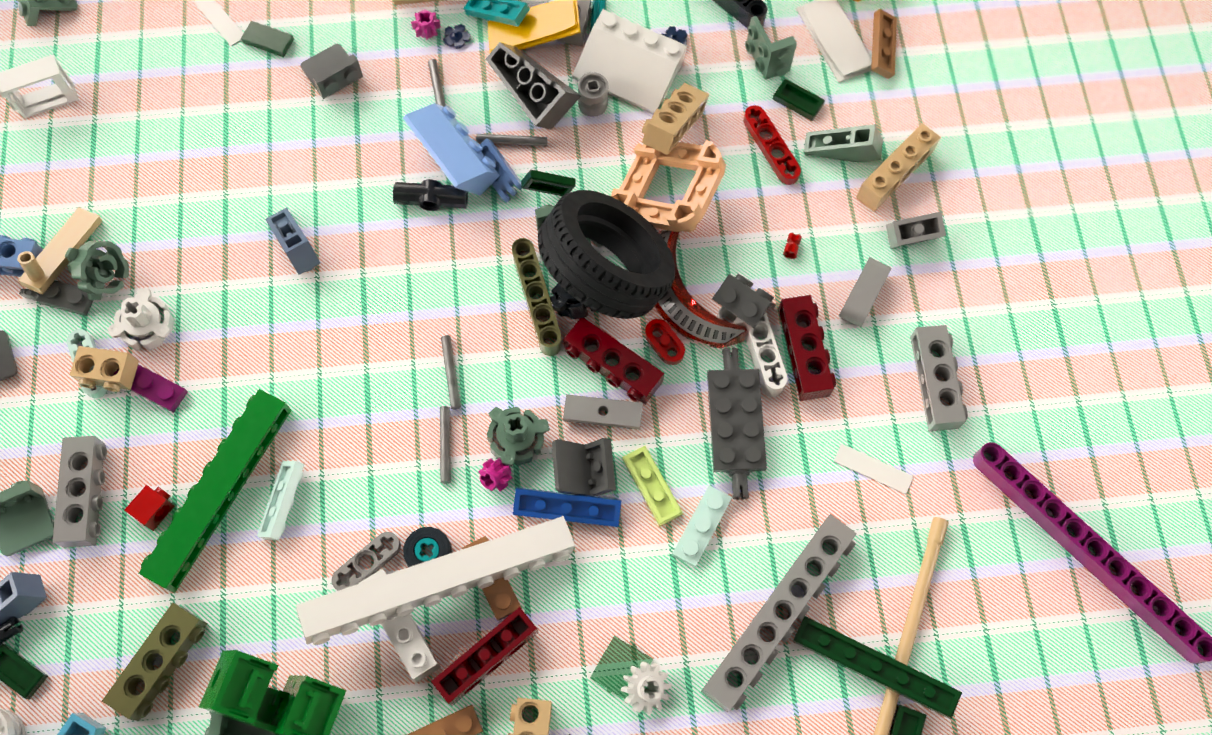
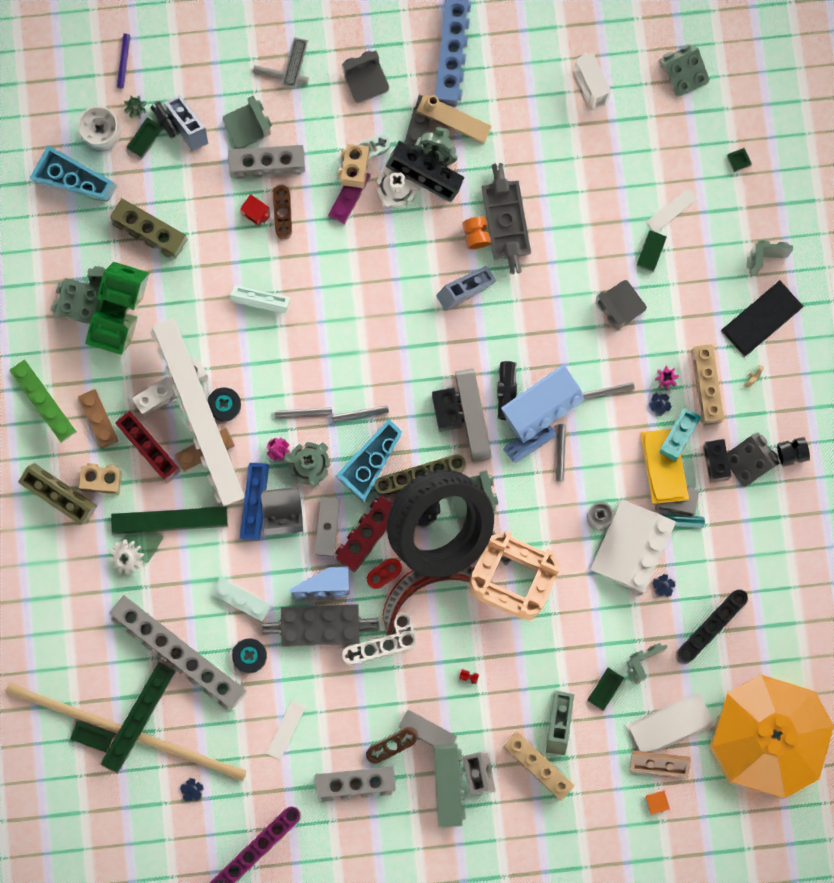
camera: 90 degrees right, 10 degrees up
(125, 279) = (425, 171): none -> black brick
(147, 467) = (276, 199): none -> reddish brown beam
(205, 192) = (506, 219): none -> dark grey plate
(214, 225) = (476, 232): none -> orange wheel
(215, 491) = (268, 255): green brick -> none
(375, 543) = (215, 370): light grey beam -> none
(451, 270) = (443, 410): none -> black brick
(459, 234) = (473, 414): none -> light grey beam
(523, 361) = (368, 462): none -> medium azure wedge
(533, 87) = (606, 465): dark grey wedge -> none
(548, 183) = (514, 478): dark green tile -> none
(591, 629) = (169, 520): none -> dark green tile
(652, 486) = (272, 563): yellowish green tile -> none
(674, 118) = (547, 570): tan brick -> none
(679, 407) = (328, 582): none -> light blue slope
(742, 300) = (416, 634): dark grey bracket -> none
(769, 145) = (562, 666): red beam -> none
(777, 528) = (248, 665): none -> black bush
(808, 385) = (349, 681): dark red brick -> none
(878, 327) = (396, 737): none -> reddish brown beam
(926, 50) = (657, 802): none -> orange tile
(933, 263) = (448, 785): none -> sand green brick
(965, 592) = (192, 790): none -> dark blue plant

